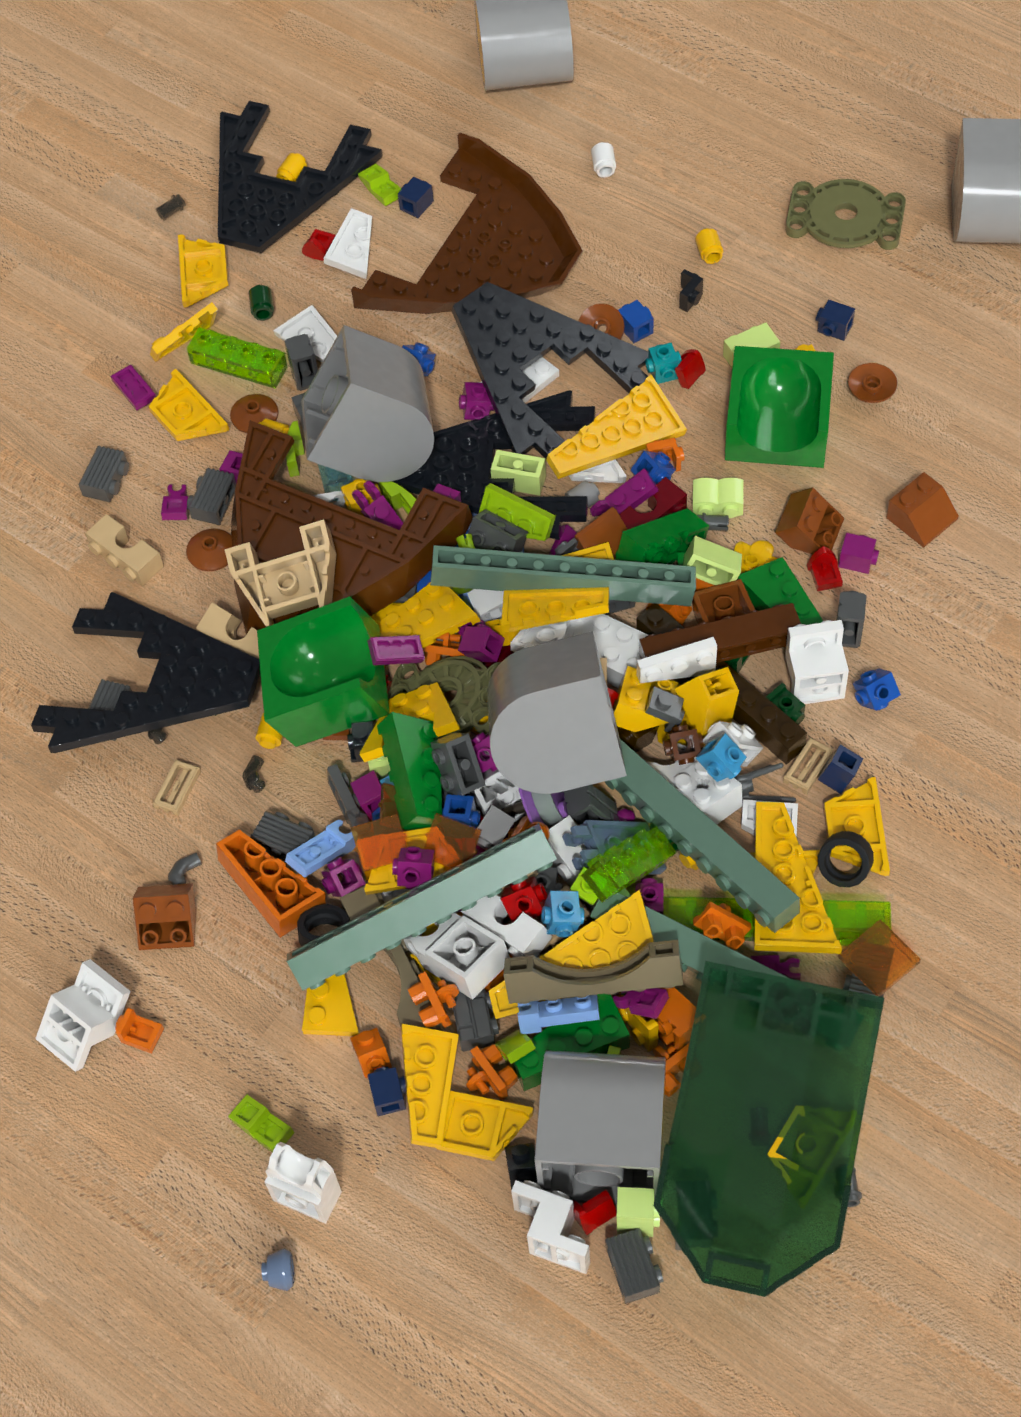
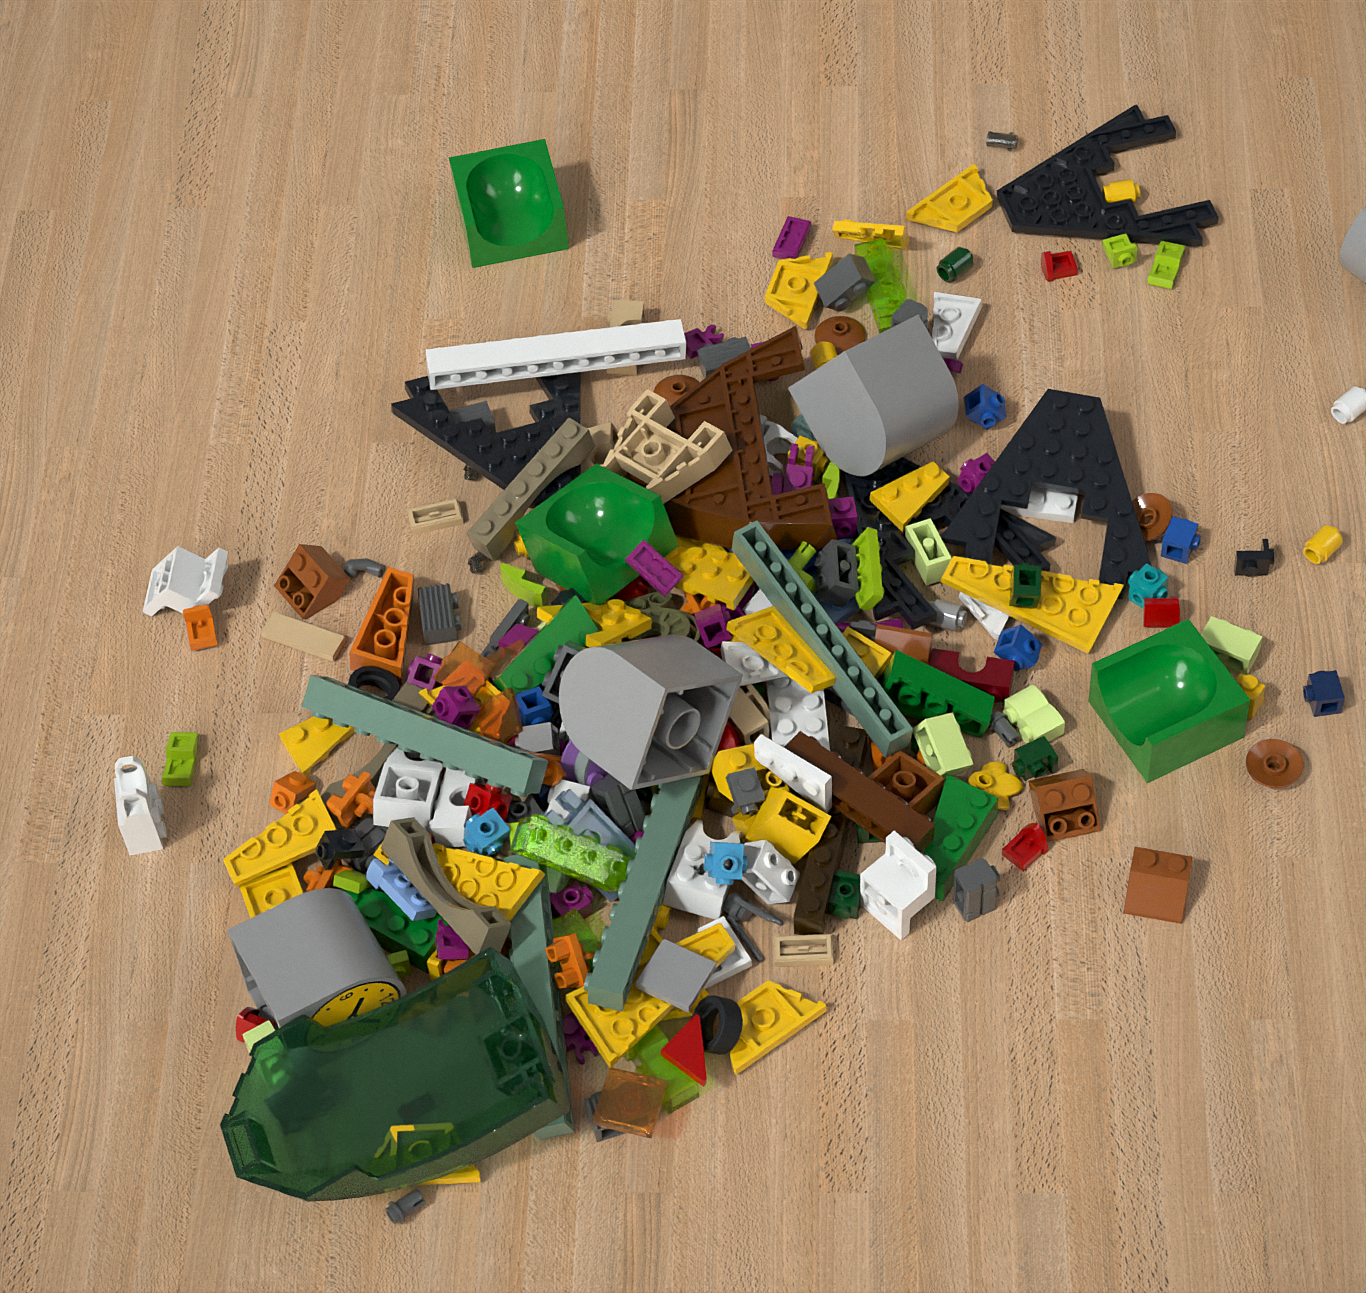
camera: 55 degrees right, 5 degrees down
(104, 474) = (687, 276): dark grey brick -> none
(109, 602) = (555, 354): none -> white brick
(214, 955) = (303, 636): none -> tan tile
(220, 374) = (845, 282): none -> dark grey brick
(233, 694) = (561, 452): none -> dark tan arch
(279, 1270) = (66, 845): sand blue cone -> none
(301, 764) = (517, 583): none -> lime slope
(321, 849) = (435, 639): light blue plate -> none
(342, 200) = (1120, 250): none -> lime bracket
(351, 244) = (1077, 286): white wing -> none
(387, 1090) = (259, 817): dark blue brick -> none
(415, 197) = (1172, 297): dark blue brick -> none
(458, 452) = (910, 493): none -> yellow wing
(473, 1040) = (338, 845): none -> black bracket
(503, 238) = (1166, 395): reddish brown piece -> none
(551, 1226) = (216, 1001): white bracket -> none
(613, 426) = (1025, 585): none -> dark green brick
(630, 493) = (970, 645): magenta hinge -> none
(633, 1265) = (217, 1086): dark grey brick -> none
(670, 448) = (1051, 649): orange bracket -> none
(693, 748) = (726, 827): reddish brown brick -> none
(757, 518) = (1035, 759): none -> dark green brick
(791, 855) = (675, 975): none -> light grey tile
(840, 769) = (809, 971): dark blue brick -> none
(858, 553) = (1064, 859): magenta brick -> none
(859, 891) = (687, 1051): none -> red tile
(876, 689) = (919, 954): blue brick -> none

